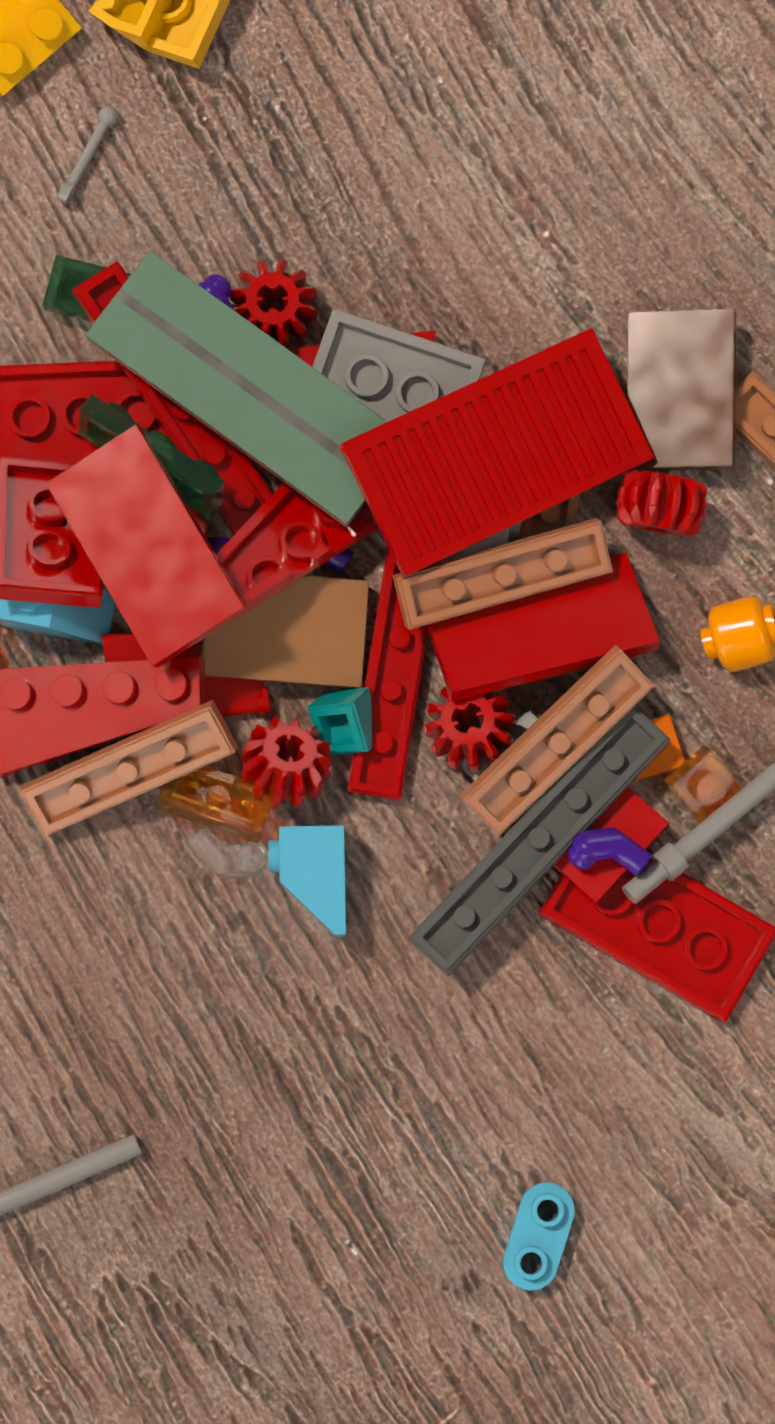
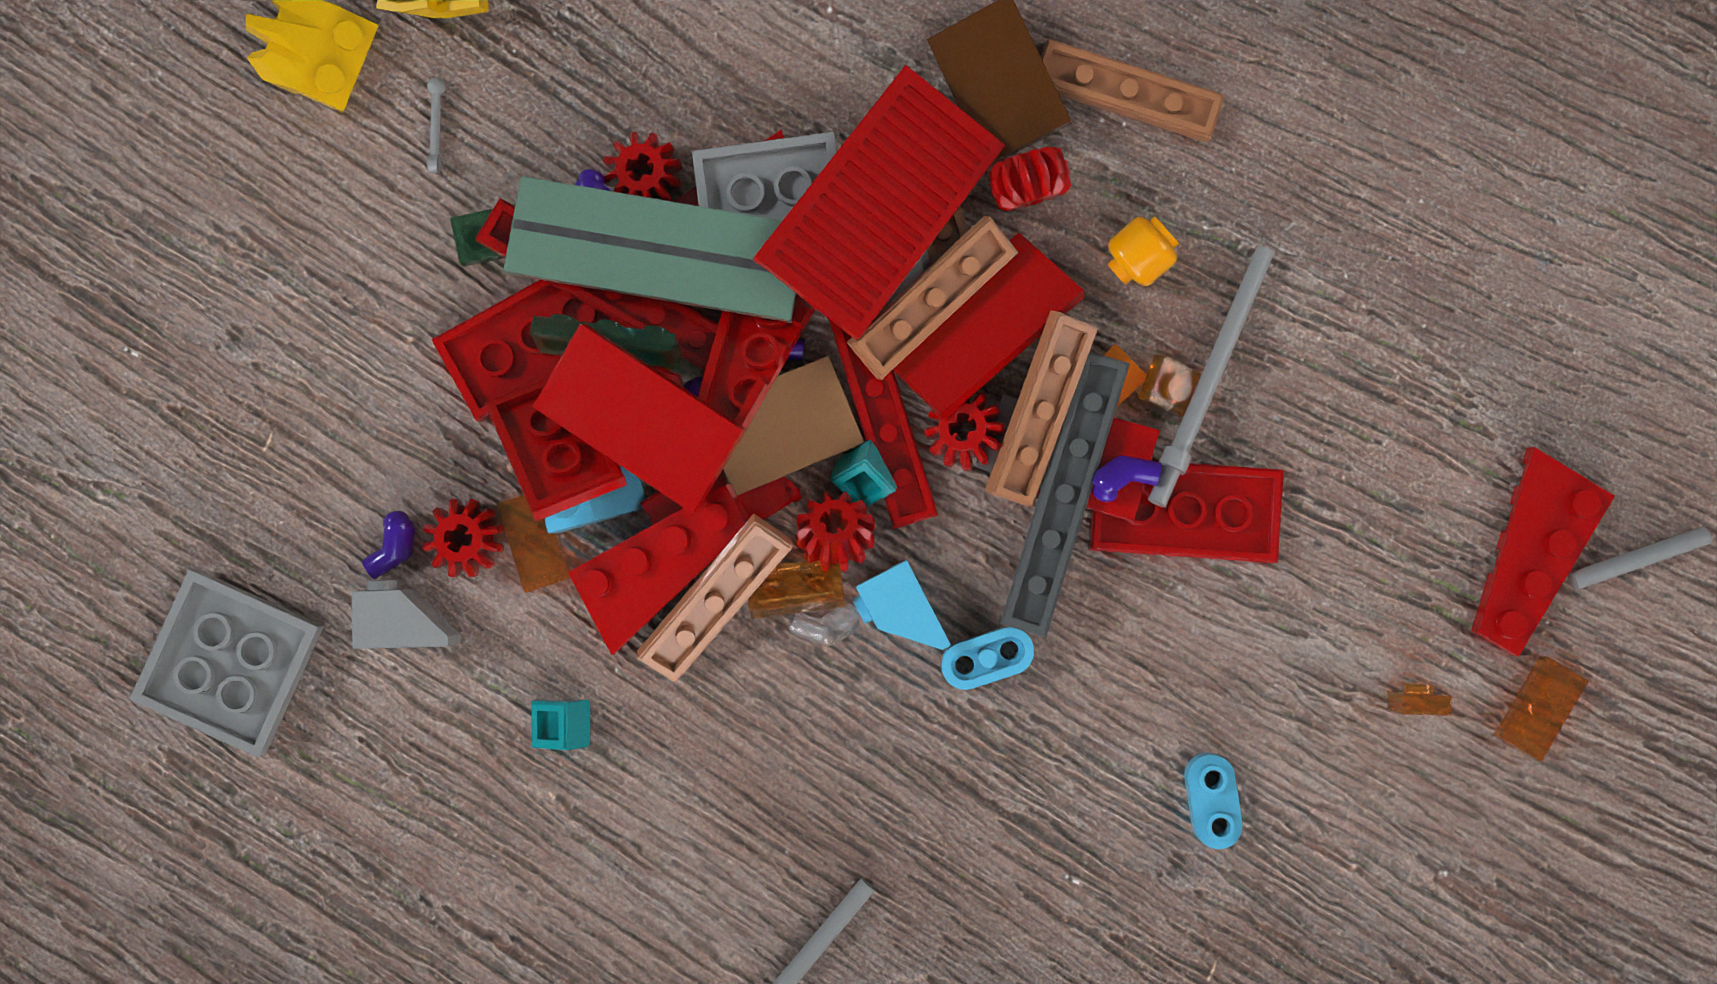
camera: 20 degrees left, 5 degrees up
(377, 969) = (986, 658): none -> medium azure plate

